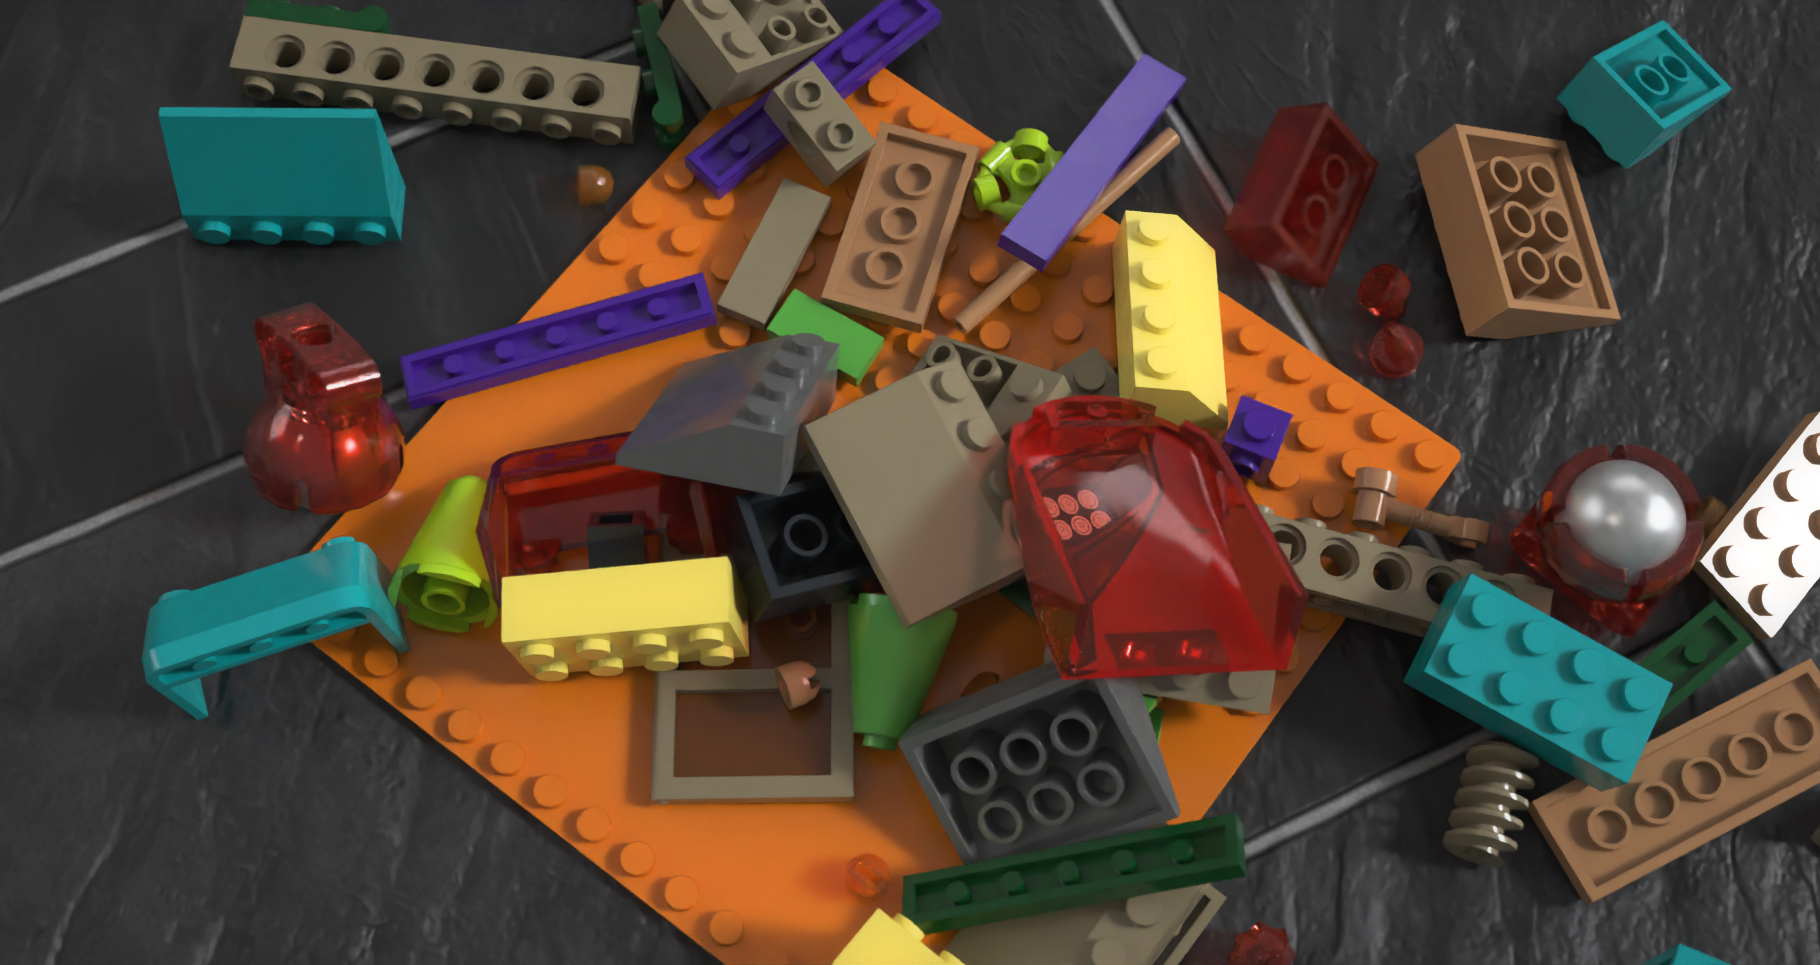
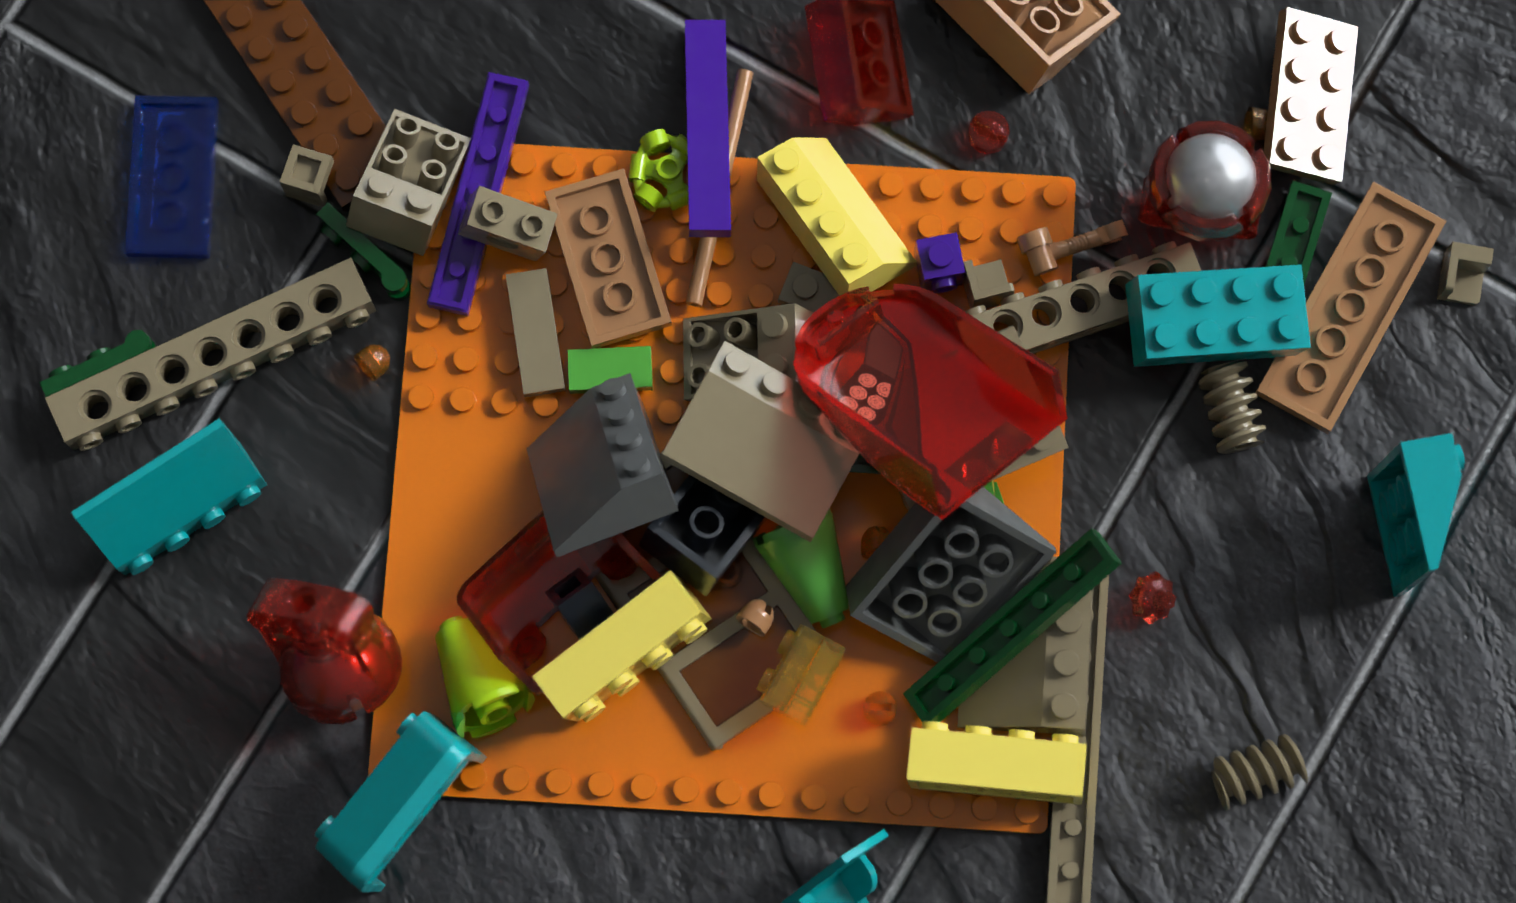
camera: 30 degrees left, 10 degrees up
(557, 341) = (432, 487): dark purple tile -> none
(801, 775) = (801, 674): none -> clear yellow brick
(1292, 492) = (986, 284): none -> dark tan panel
(1385, 291) = (956, 95): clear red tile -> none

